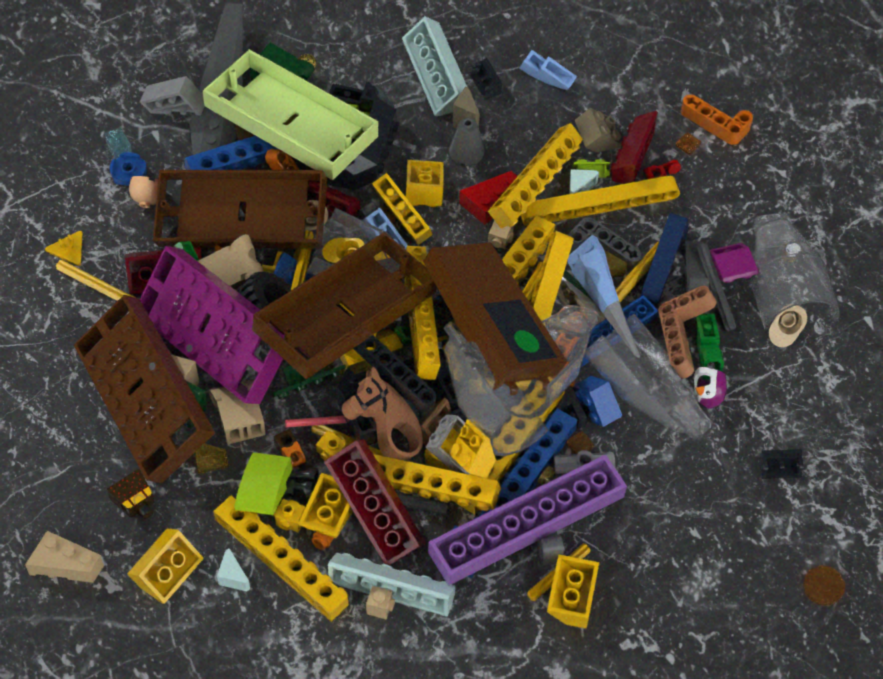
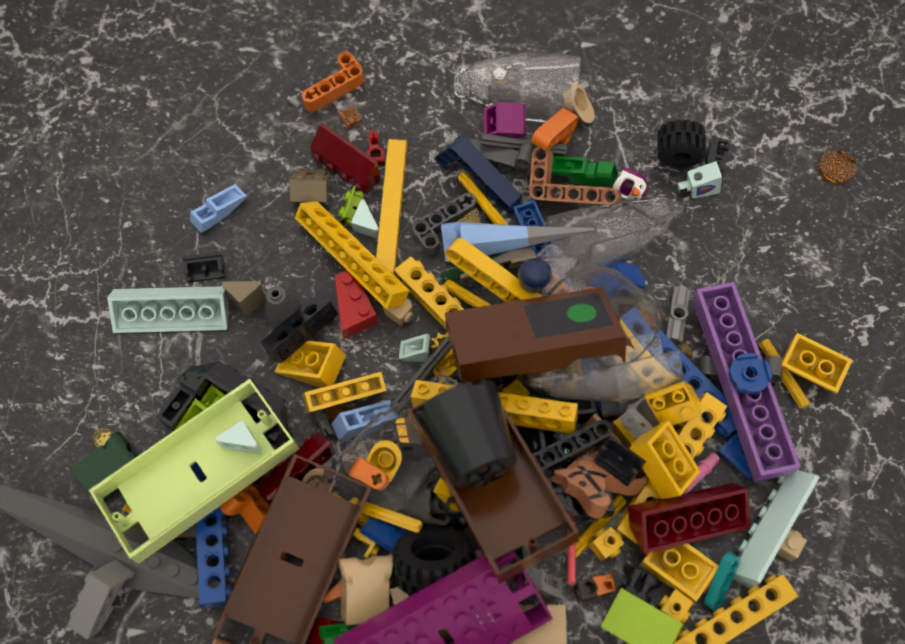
camera: 70 degrees left, 10 degrees up
(279, 402) = (544, 583): none -> light grey hinge
(326, 133) = (239, 439): none -> light aqua slope
(330, 241) = (366, 473): none -> orange piece
(330, 539) = (722, 581): none -> teal beam
(371, 268) = (468, 433): none -> black cone
(400, 419) = (619, 461): none -> black hinge
(417, 457) = (667, 460): none -> yellow slope
(424, 508) = (705, 467): none -> bright pink axle
(451, 161) = (299, 328): none -> black brick
(524, 521) = (756, 365): none -> blue plate
(559, 305) = (534, 274): none -> dark blue hair
(743, 453) = (702, 181): none -> light aqua torso
(748, 307) = (556, 129): none -> orange beam
(775, 419) = (681, 143): none -> black wheel

